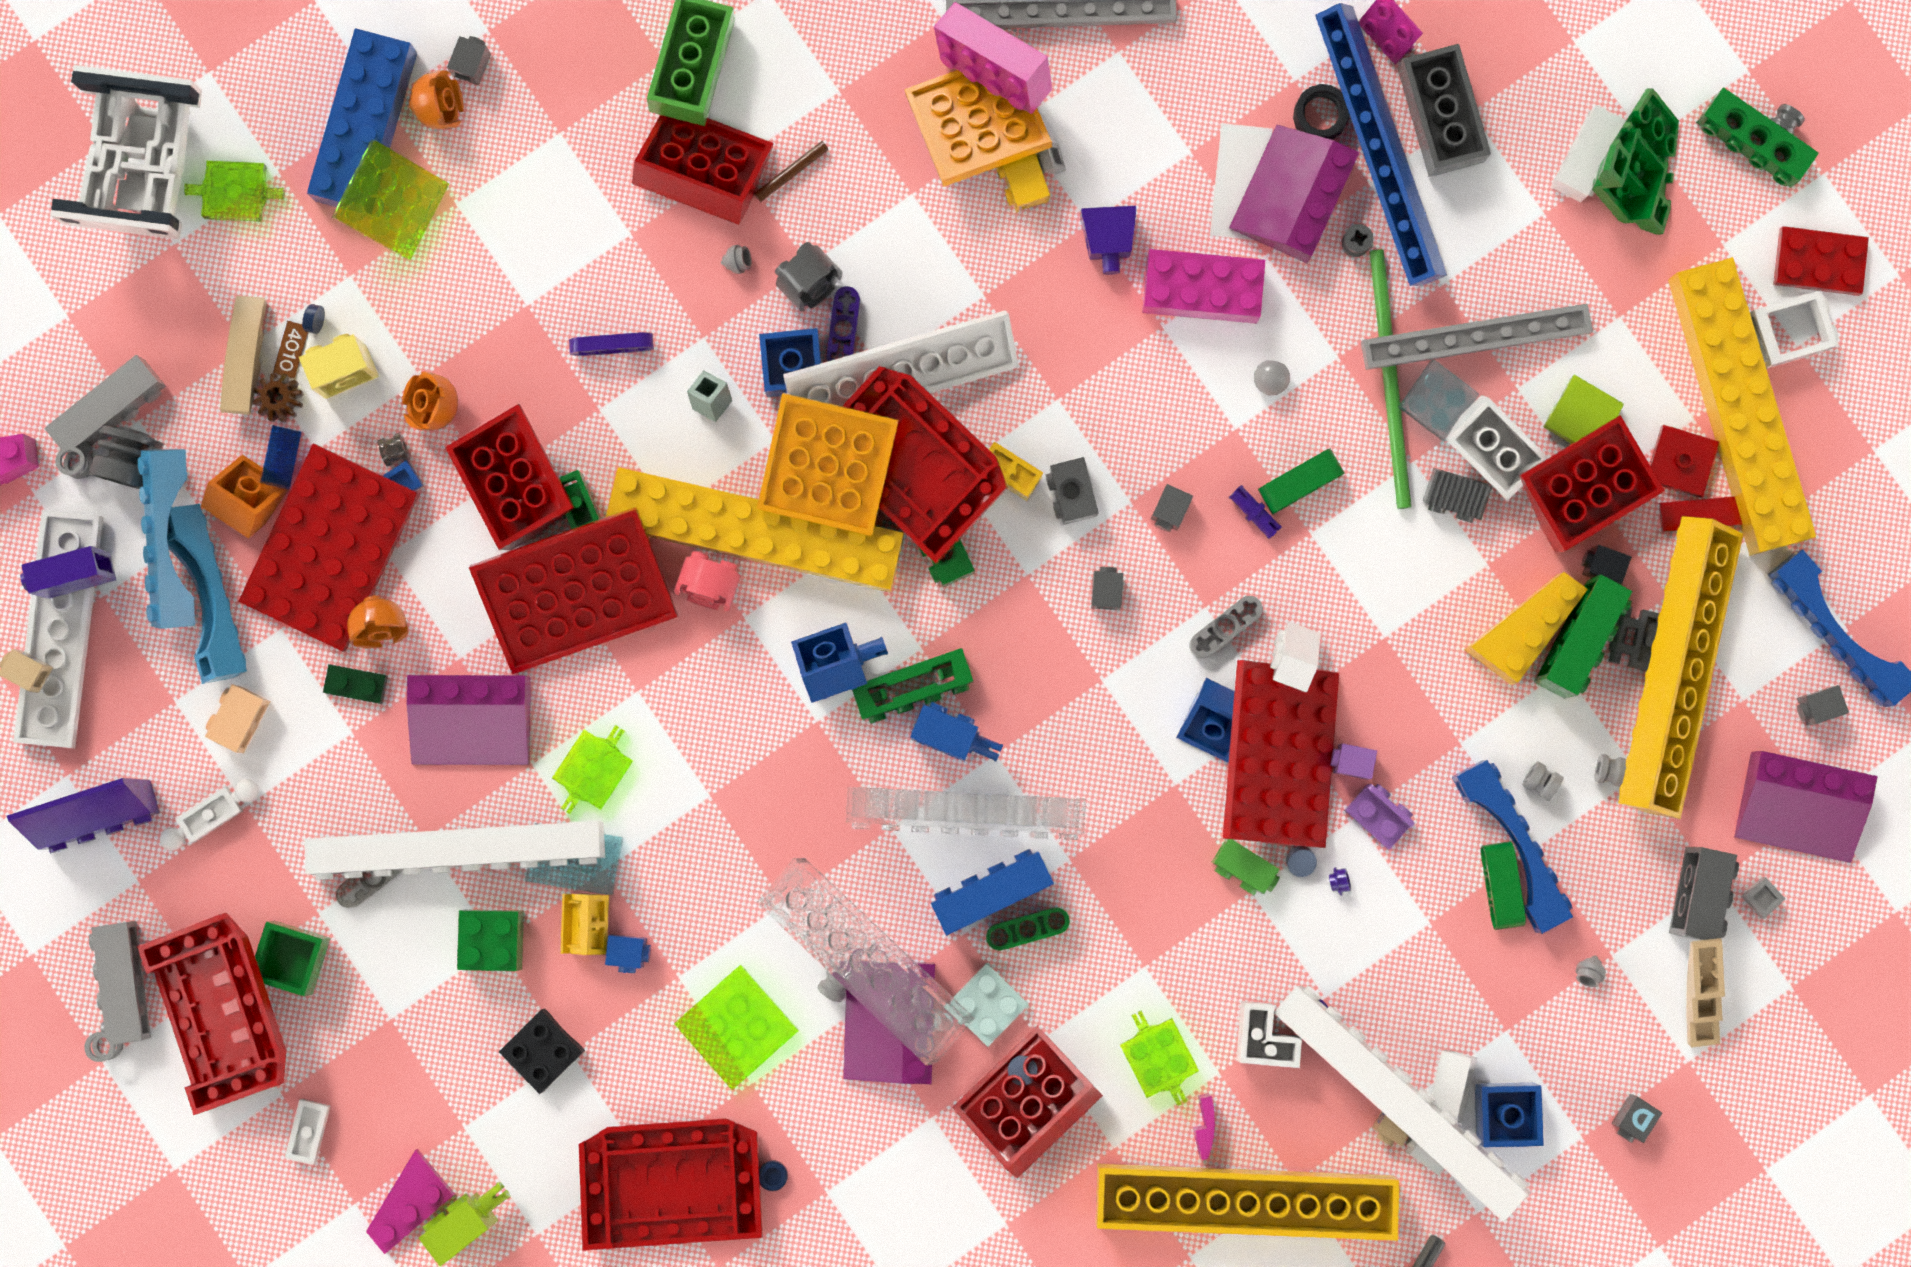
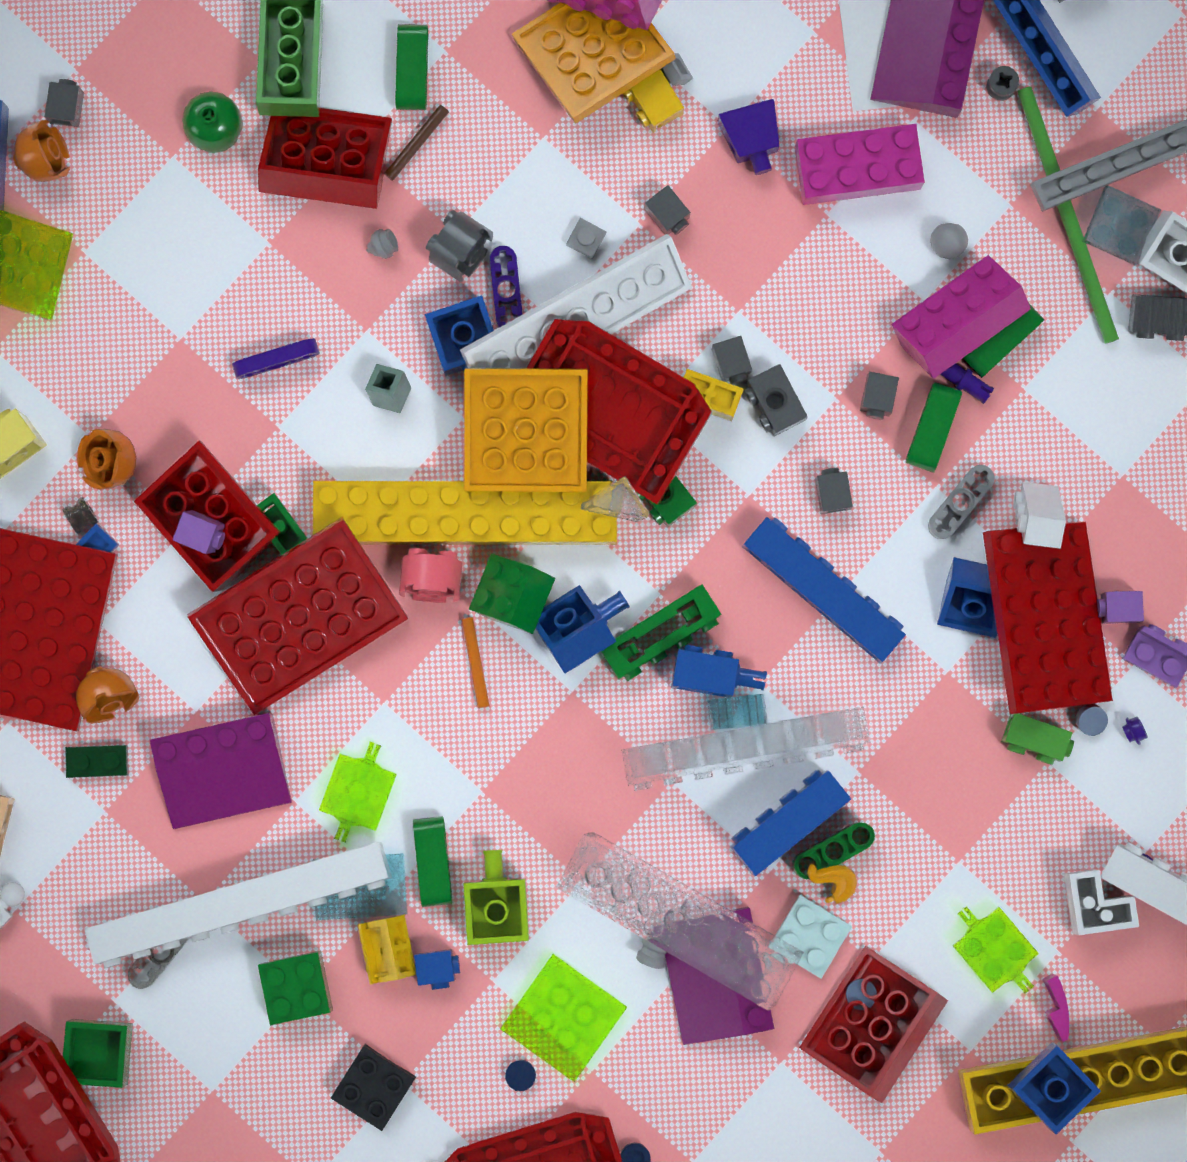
camera: 15 degrees left, 0 degrees up
(498, 490) = (199, 532): none -> medium lavender brick
(604, 108) = (218, 132): none -> green cylinder
(647, 851) = (432, 861): none -> green beam
(683, 1072) = (520, 1075): none -> dark blue tile
(696, 907) = (496, 906): none -> lime brick
(732, 673) = (475, 662): none -> orange bar
(780, 615) = (512, 593): none -> green piece
(803, 99) = (411, 67): none -> green beam
(899, 551) = (617, 501): none -> clear slope
(930, 297) = (586, 238): none -> light grey plate
(967, 776) = (737, 711): none -> clear light blue axle
(1012, 289) = (668, 211): none -> dark grey brick
(1030, 957) = (843, 881): none -> light orange piece
(1040, 443) = (732, 360): none -> dark grey brick
(1076, 680) = (824, 590): none -> blue brick
(1181, 1202) = (1054, 1088): none -> blue brick
(1216, 550) = (933, 427): none -> green beam
(1265, 451) = (961, 316): none -> dark pink brick

